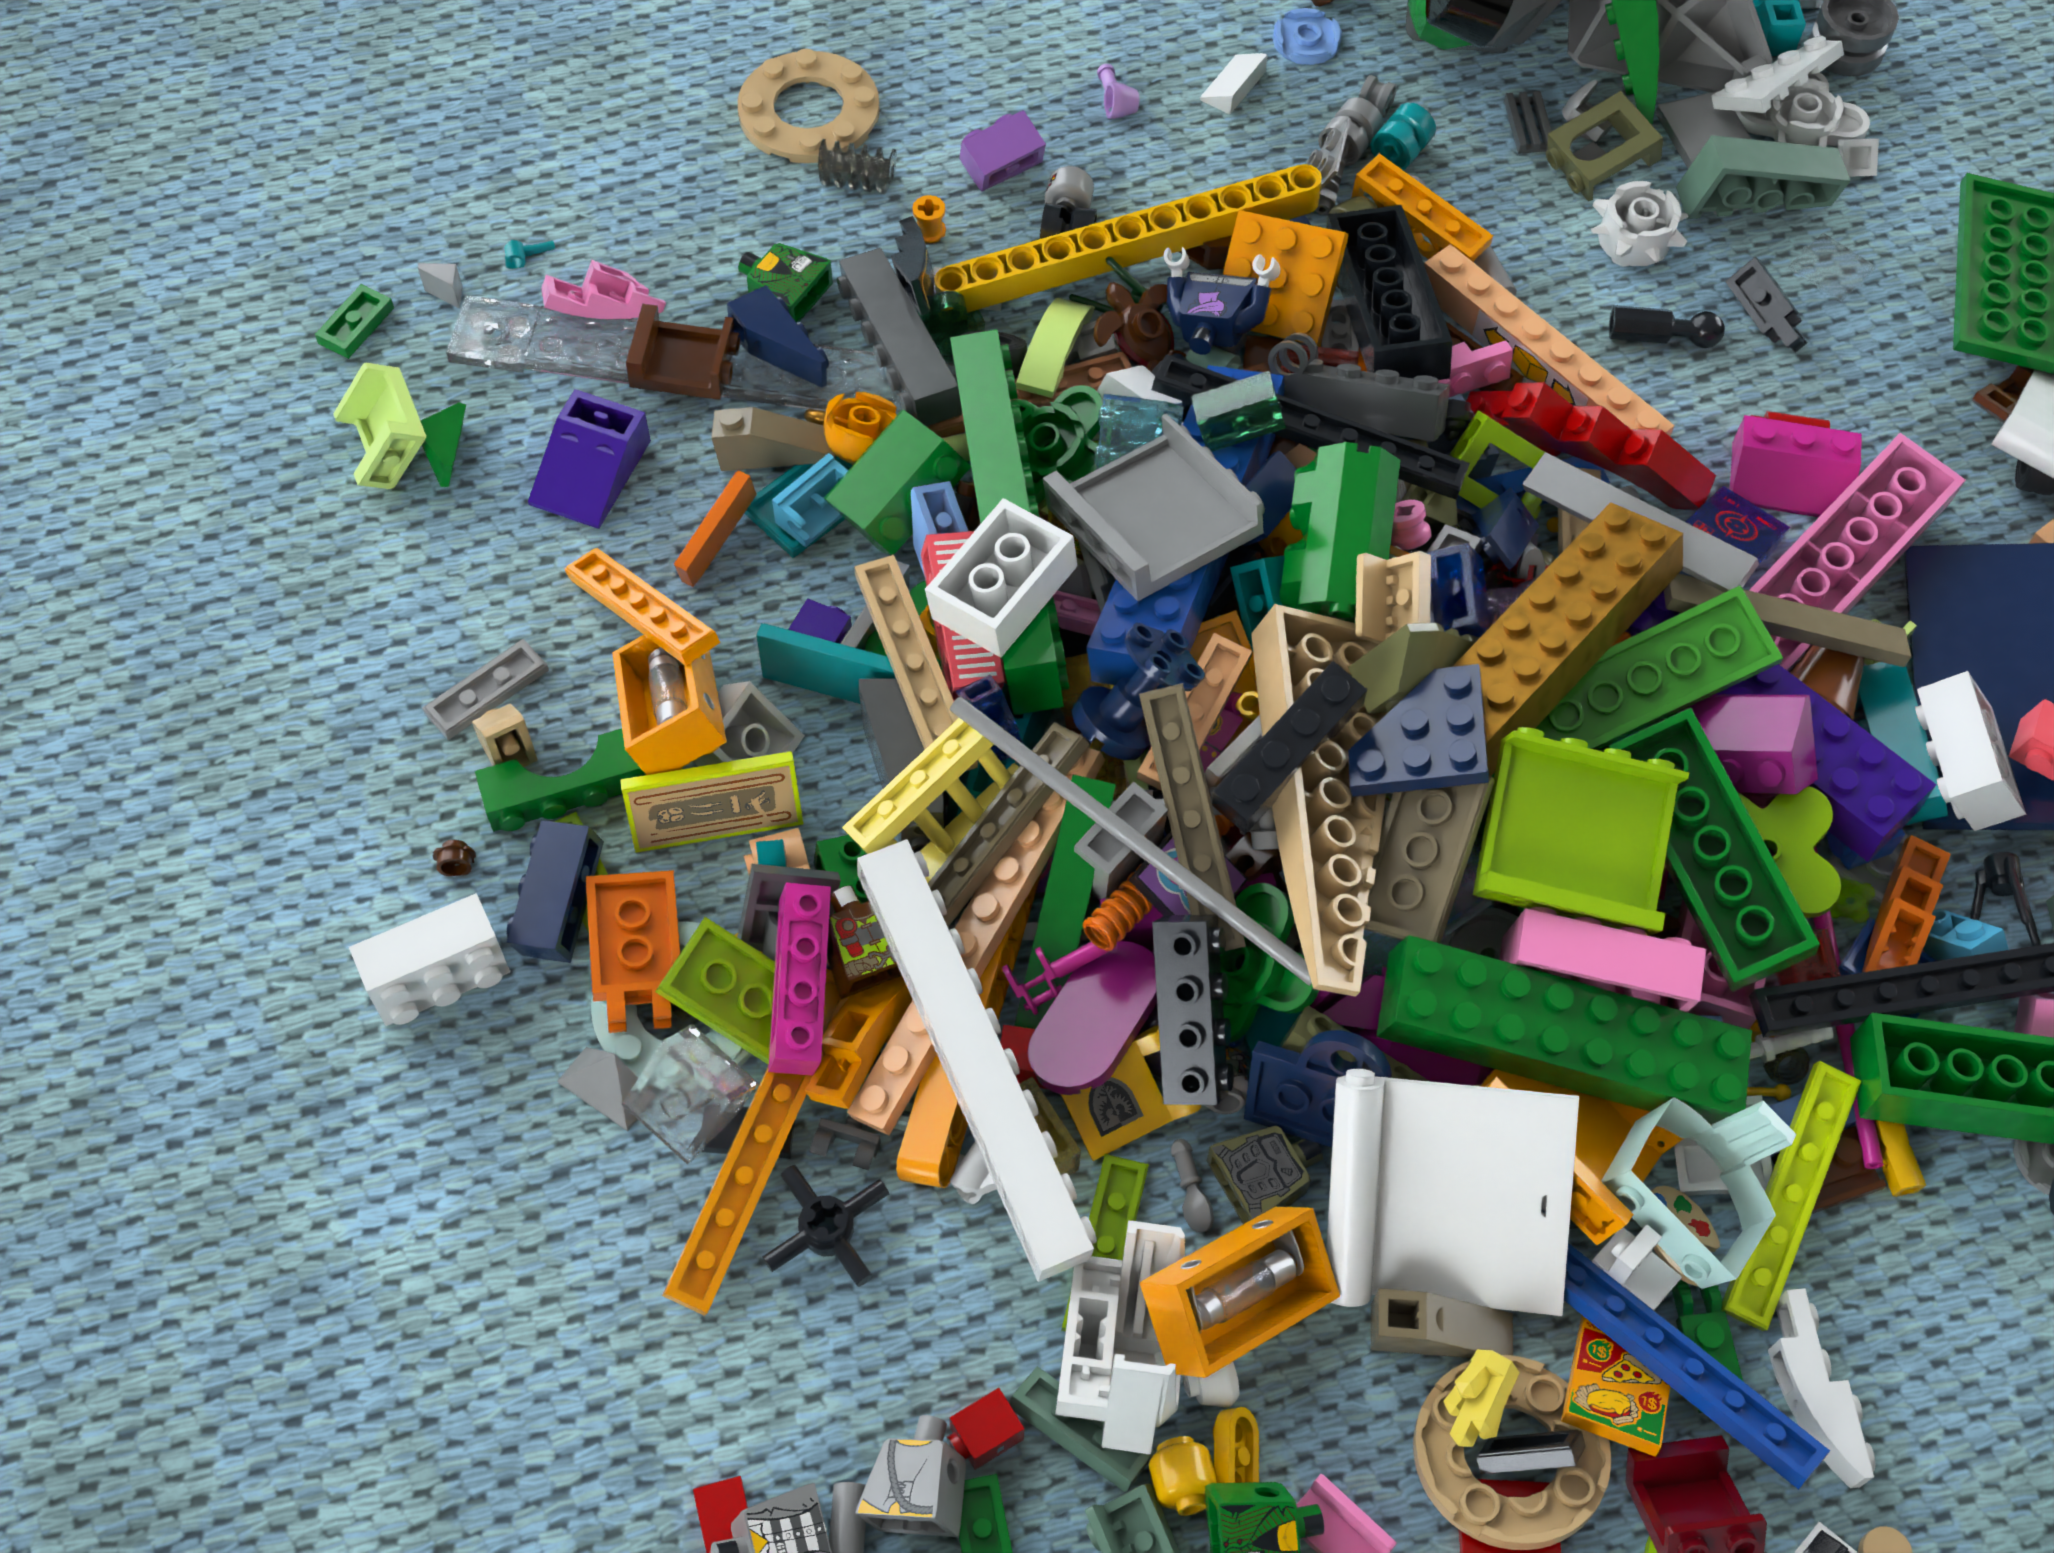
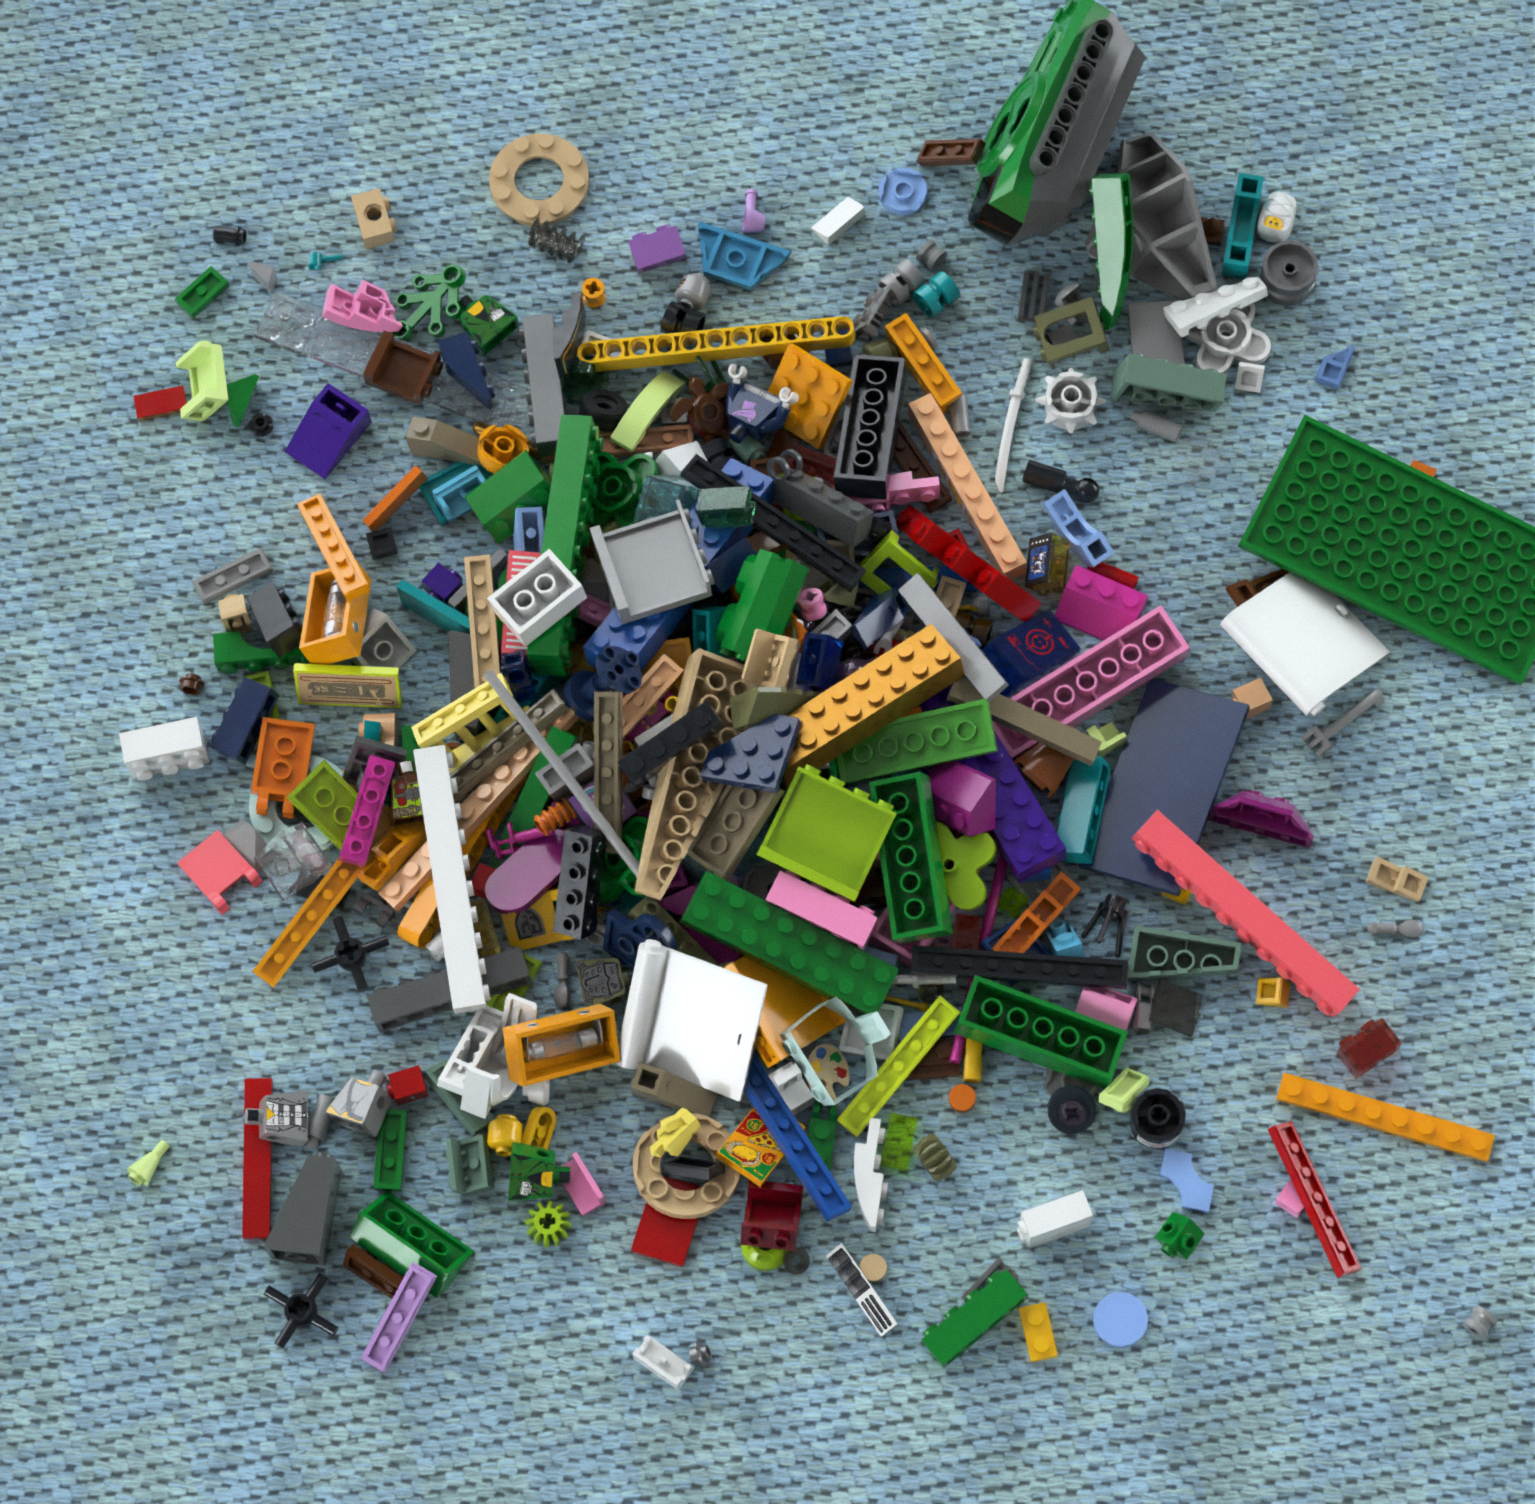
camera: 20 degrees right, 10 degrees up
(319, 476) = (160, 403): none -> red tile
(381, 244) = (230, 235): none -> black pin
(483, 482) = (264, 430): none -> black plate
(559, 1137) = (217, 867): none -> coral flag
(575, 726) = (276, 618): none -> brick
(587, 186) = (367, 206): none -> tan brick
(710, 595) = (381, 543): none -> black plate
(720, 235) = (432, 300): none -> green plant
(989, 1253) = (431, 994): none -> dark grey brick
(1114, 145) = (737, 257): none -> dark azure wing
(1559, 237) = (1017, 395): none -> white sword
(1700, 422) = (1047, 563): none -> brick
(1719, 385) = (1085, 542): none -> light blue arch
(1763, 236) = (1157, 425): none -> light grey cylinder
(1767, 304) = (1136, 480): hinge -> none
(1839, 1319) = (898, 1141): none -> clear neon green tile
(1904, 1223) = (962, 1098): none -> orange tile
(1916, 1331) = (934, 1157): none -> olive gear
(1956, 132) = (1334, 368): none -> medium blue tile
(1969, 752) = (1106, 829): white brick -> none

